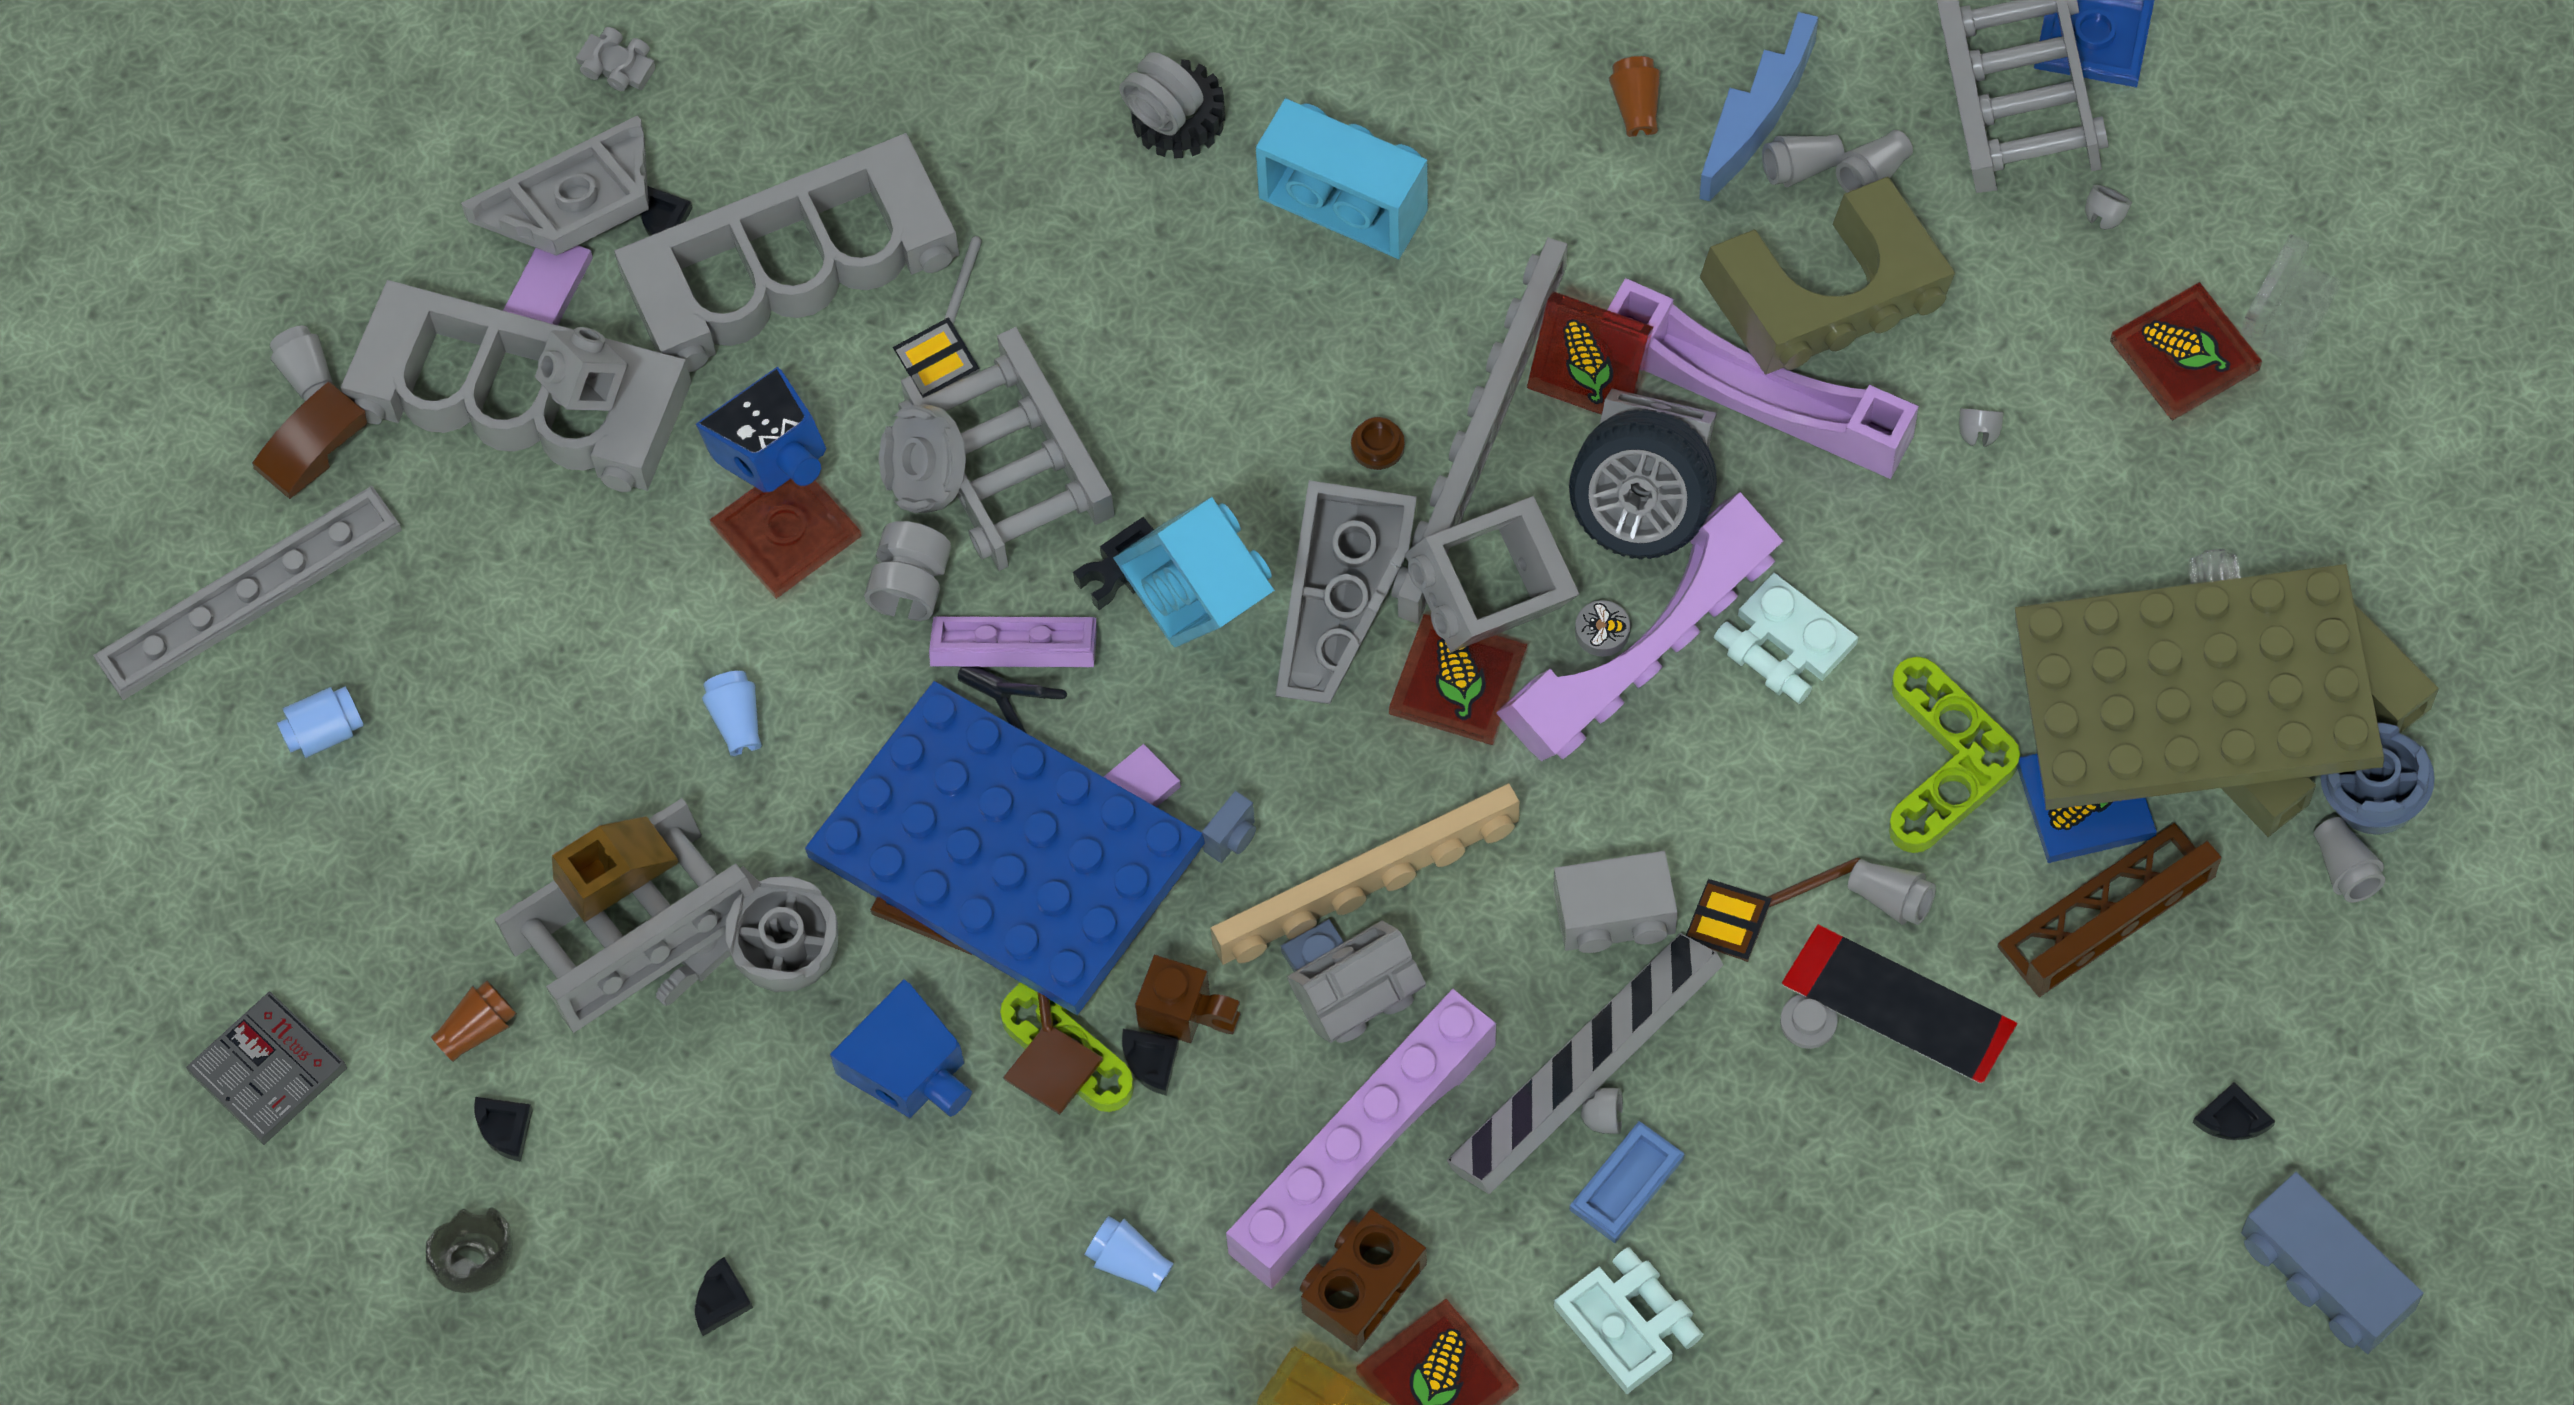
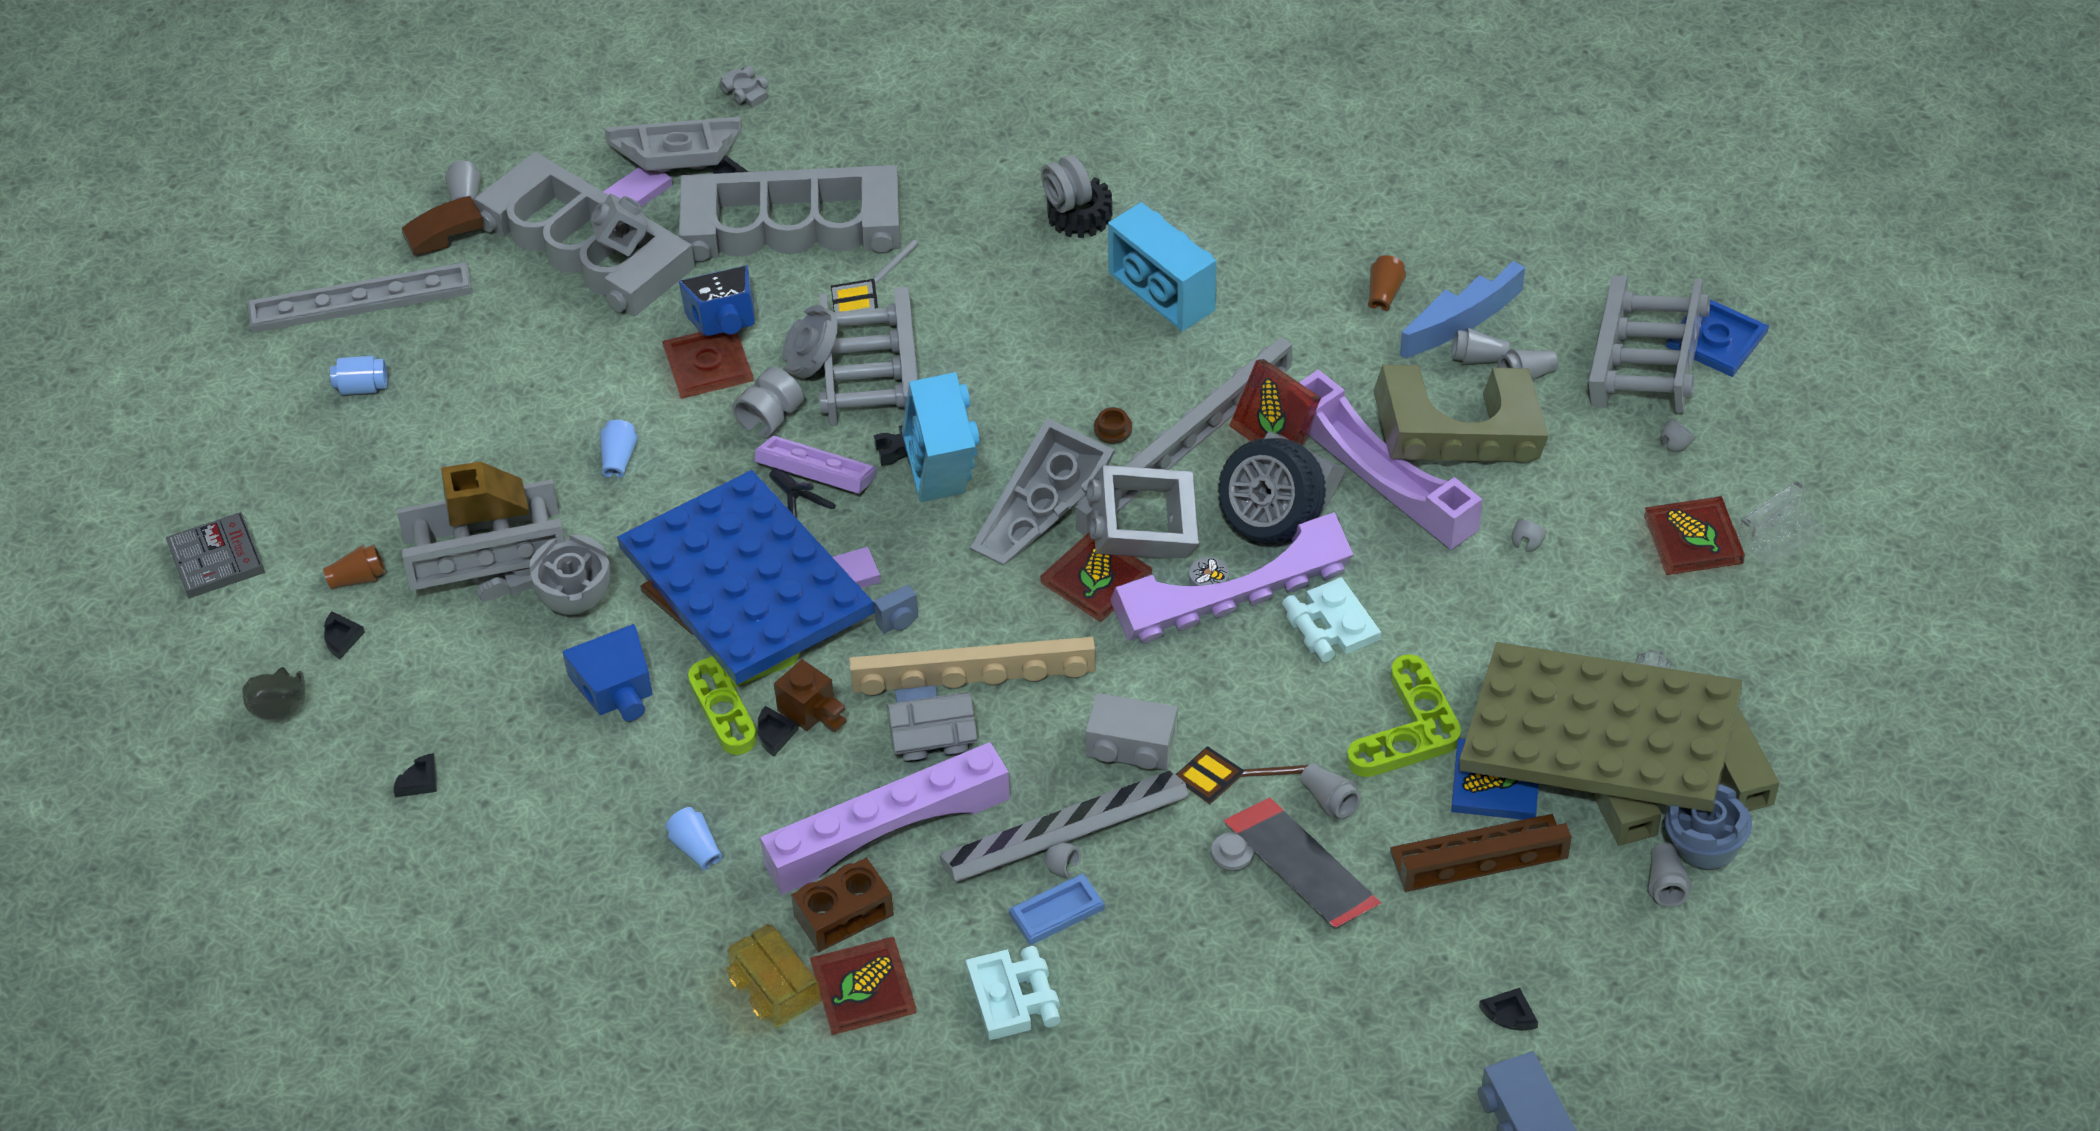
camera: 20 degrees right, 15 degrees down
(1052, 1064) = (705, 708): reddish brown piece -> none

